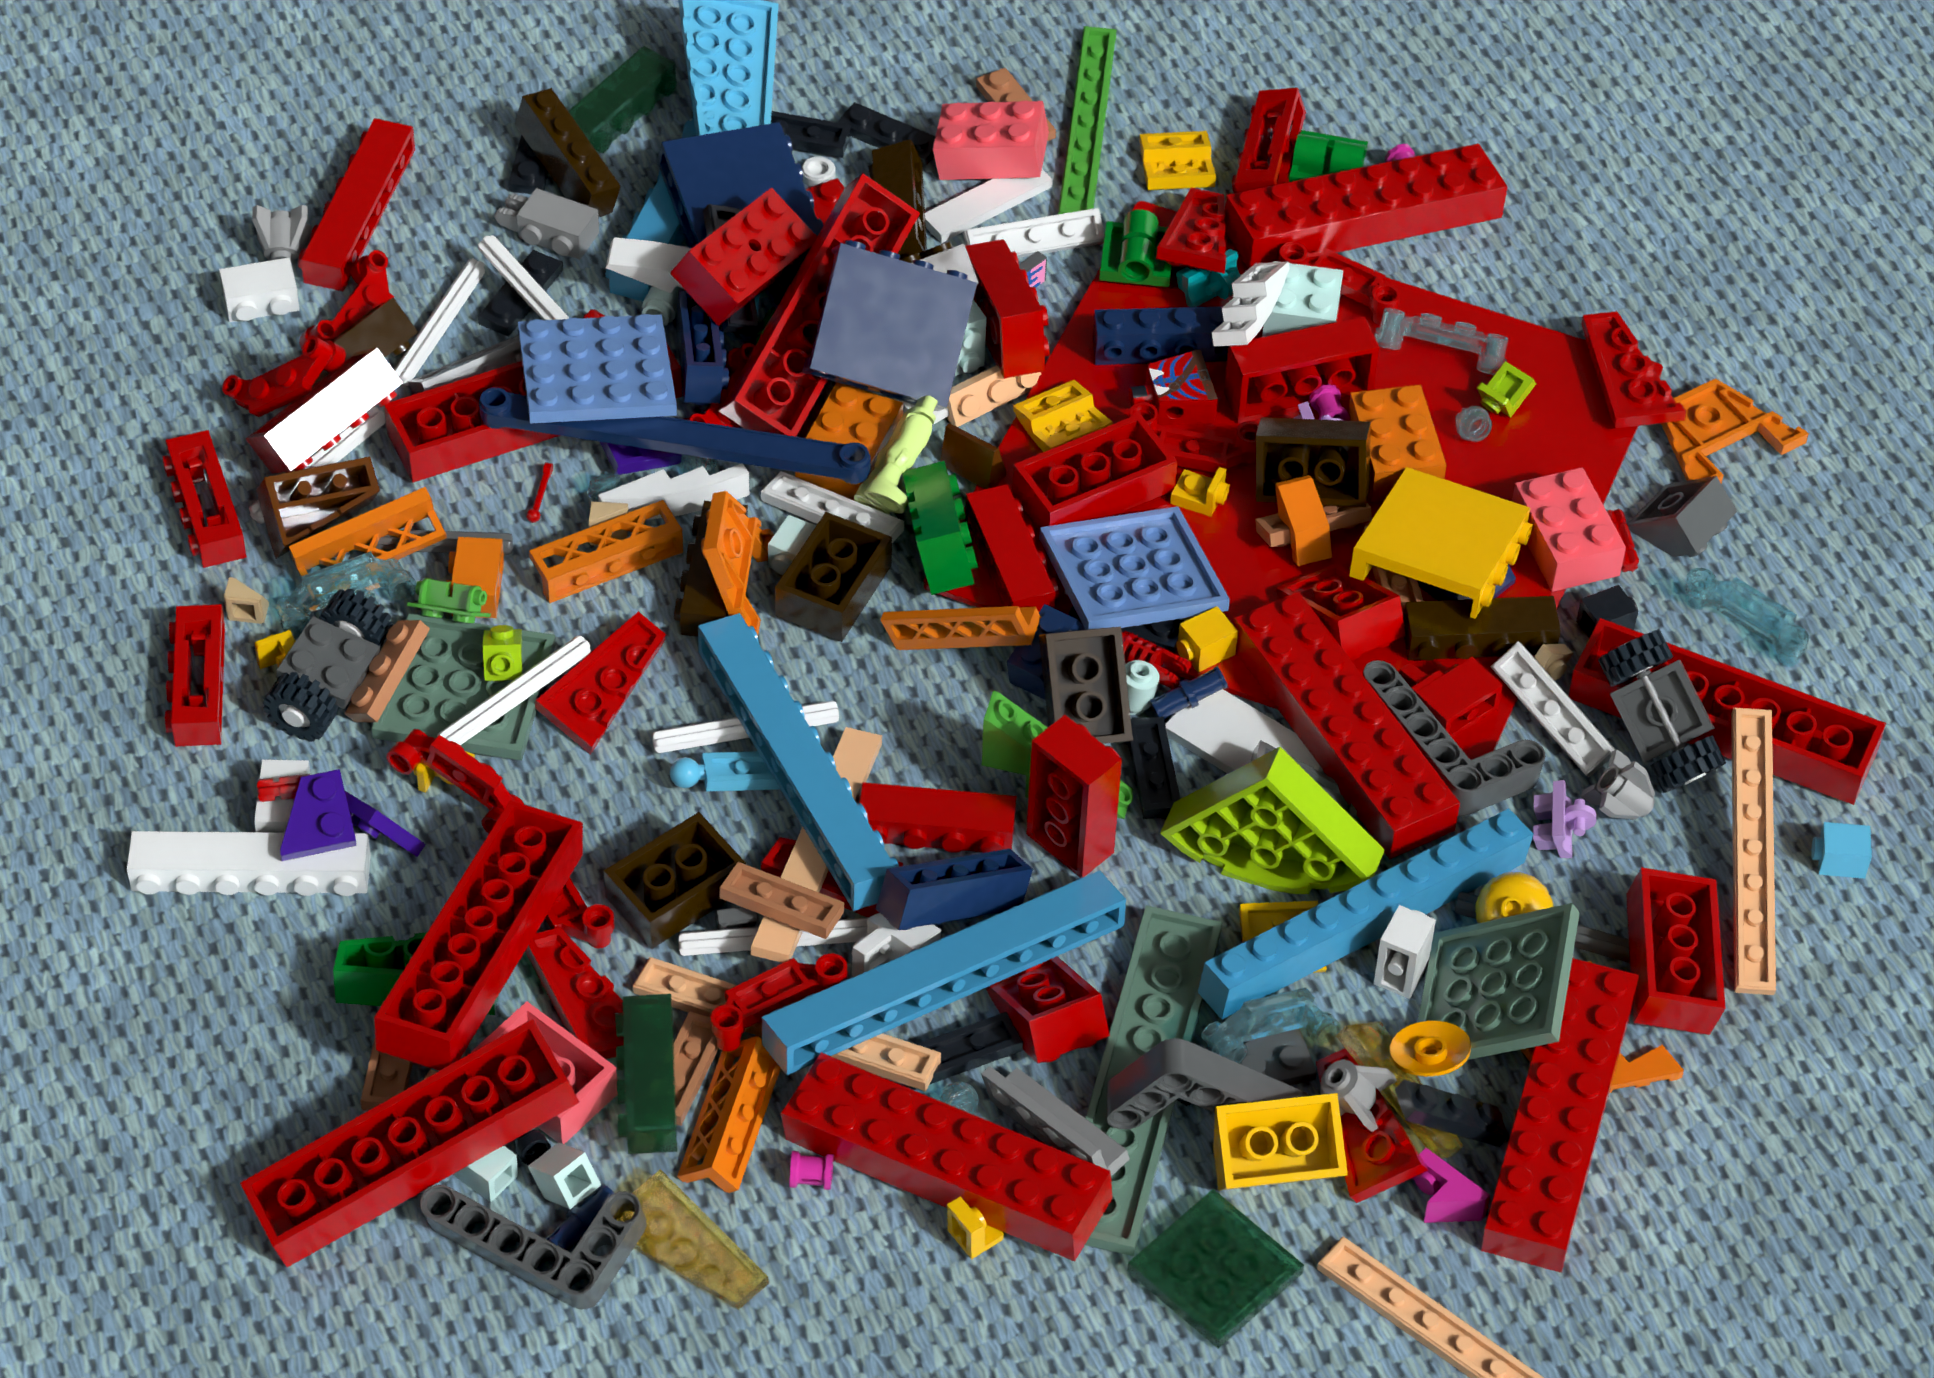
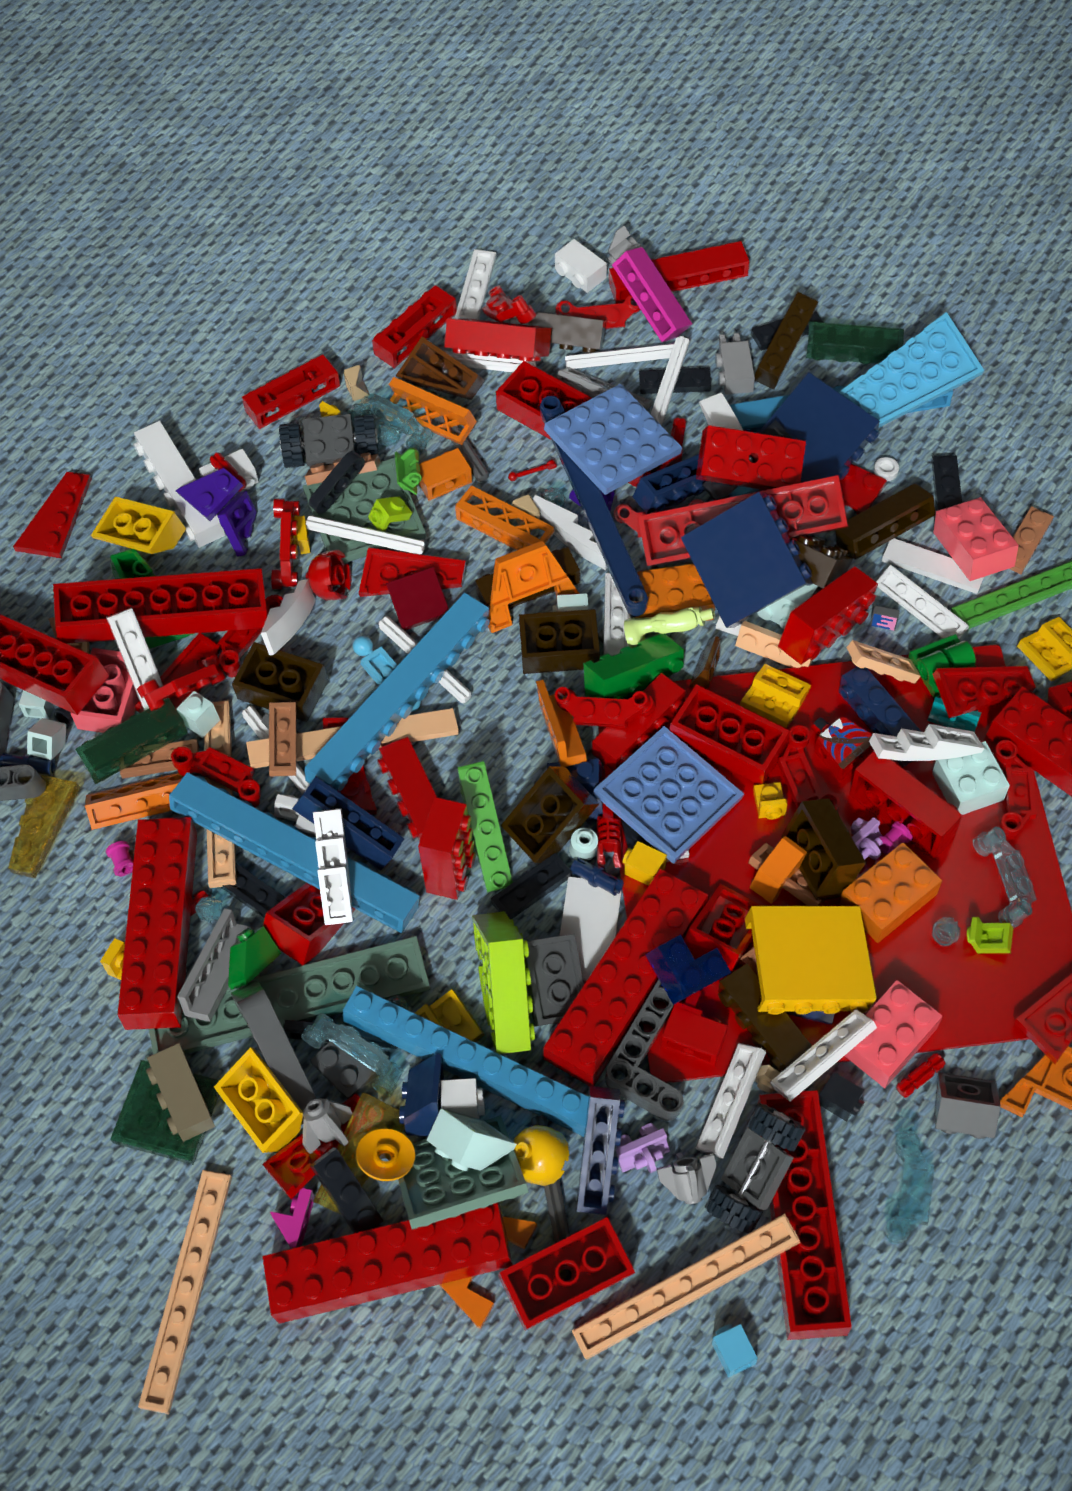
camera: 65 degrees right, 10 degrees up
(187, 410) = (476, 284): none -> white tile
(188, 1038) = (55, 520): none -> red wing
(302, 923) = (139, 526): none -> yellow slope
(390, 234) = (651, 294): none -> dark pink brick
(418, 675) = (336, 482): none -> black beam
(545, 762) = (325, 572): none -> red cylinder
(549, 994) = (134, 650): none -> white tile
(600, 827) = (288, 618): none -> white slope
(620, 966) = (207, 674): none -> red plate
(654, 687) = (417, 598): none -> dark red tile
(663, 976) = (198, 714): none -> light aqua brick
(814, 134) = (909, 445): black plate -> none
(981, 569) = (604, 711): none -> red plate
(1019, 924) = (333, 866): none -> white slope
(1068, 1078) = (250, 956): none -> green slope
(1105, 293) = (883, 662): none -> light nougat plate
(1211, 1226) = (179, 1093): none -> dark tan brick
(1379, 977) = (422, 1096): none -> dark blue slope
(1388, 649) = (683, 974): none -> clear blue brick
(1469, 953) = (468, 1140): none -> light aqua slope
(1555, 837) = (598, 1150): none -> dark blue brick
(1568, 585) = (823, 1055): none -> white tile

